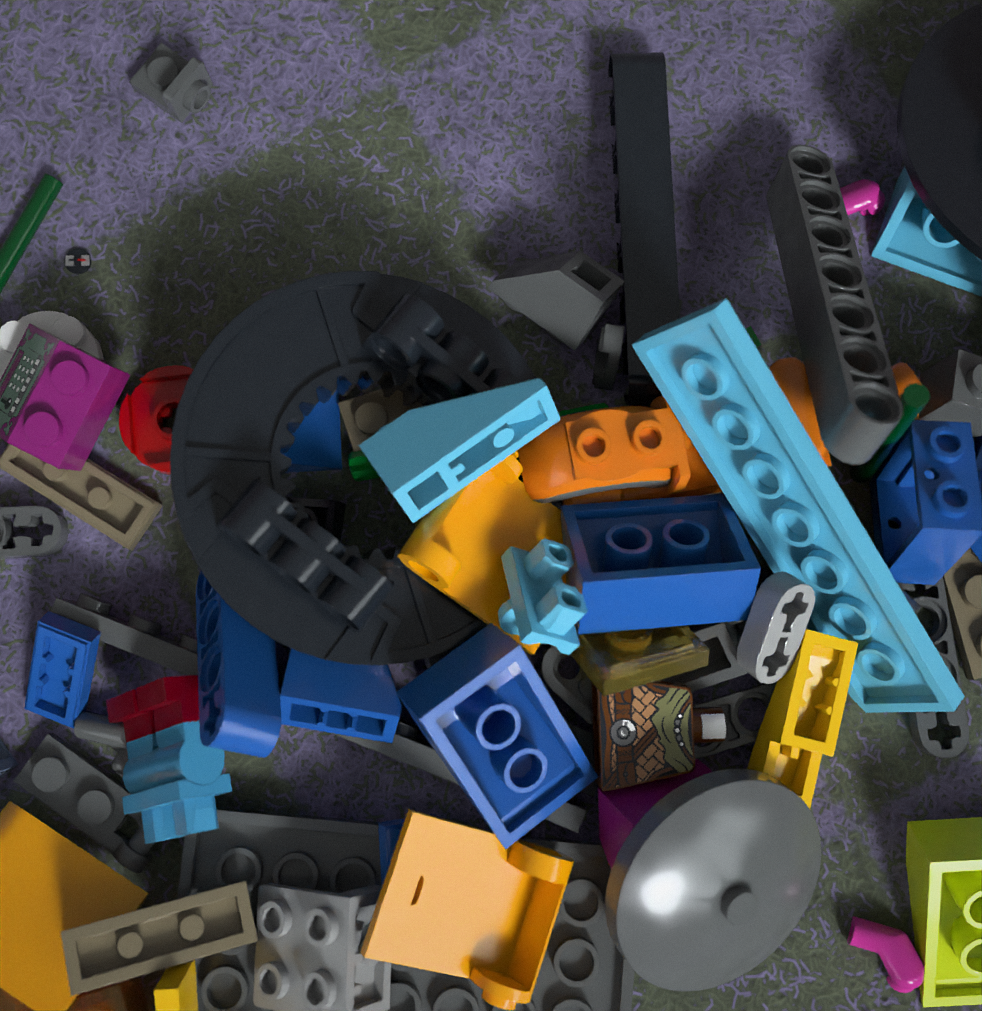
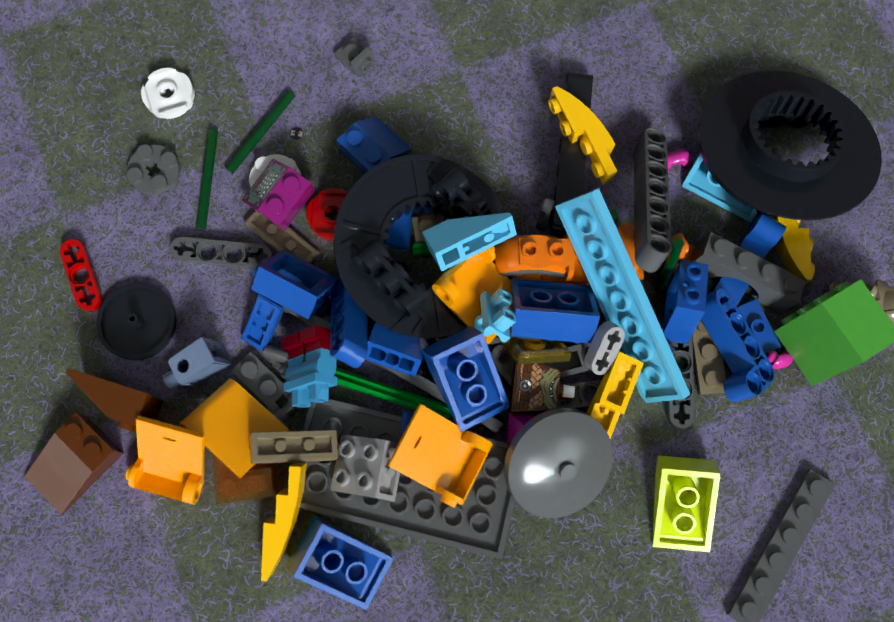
camera: 10 degrees right, 5 degrees down
(99, 611) = (293, 283): none -> blue window
(232, 261) = (370, 143): none -> blue slope
(356, 783) = (389, 392): none -> green axle
(560, 293) = (526, 181): dark grey slope -> none
(658, 158) = (582, 124): none -> yellow slope
(894, 949) = (642, 515): dark pink arm -> none

